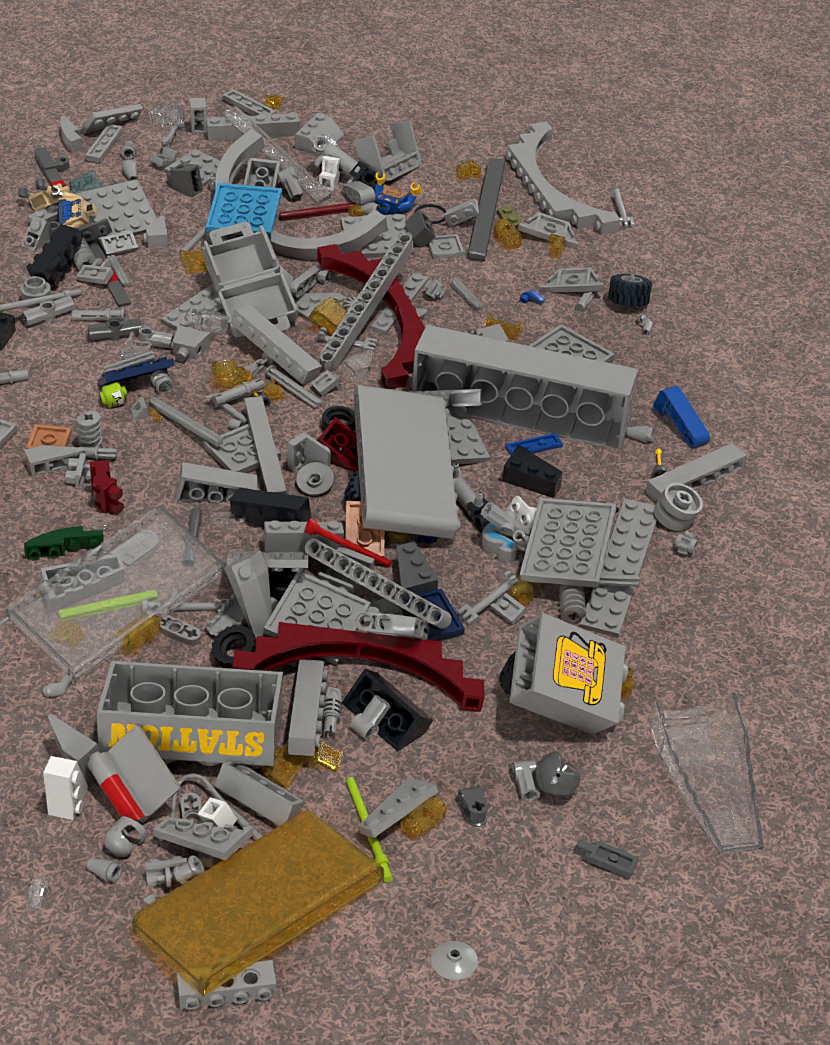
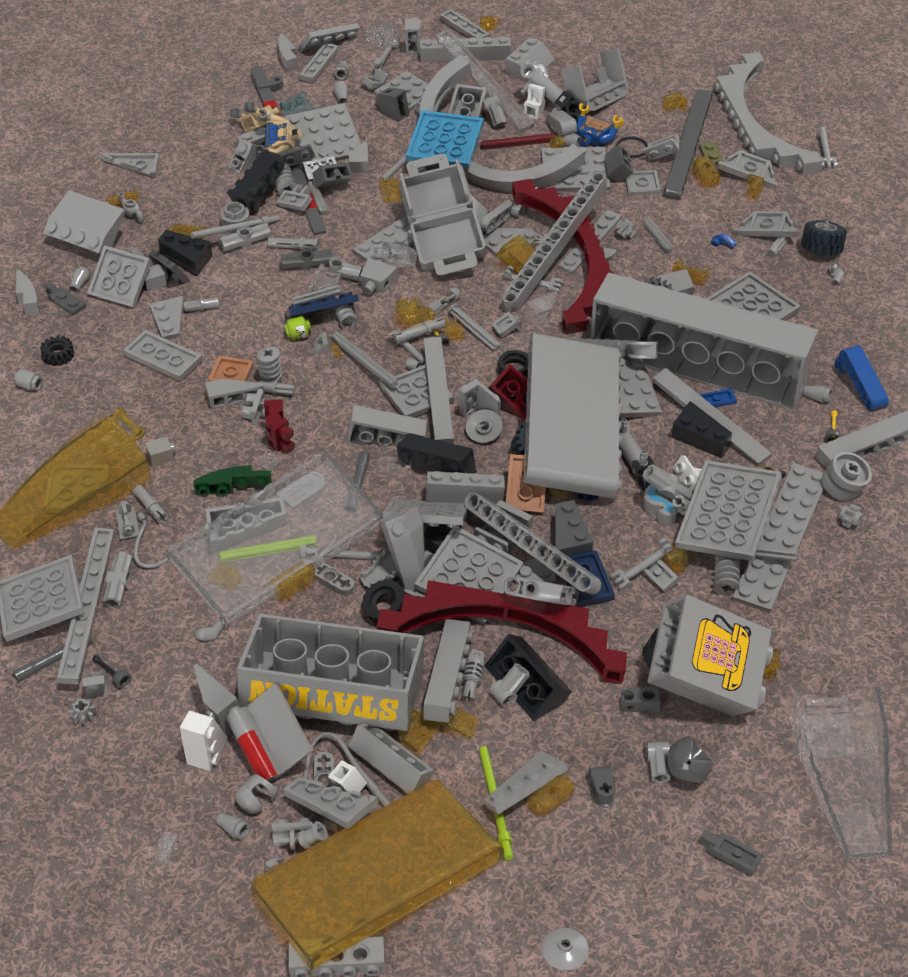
camera: 10 degrees right, 5 degrees up
(133, 247) = (332, 174): none -> dark grey brick
(276, 344) = (461, 282): light grey brick -> none
(314, 528) = (475, 482): red piece -> none
(502, 723) = (641, 699): none -> dark grey leg
(509, 439) = (740, 439): none -> light grey tile

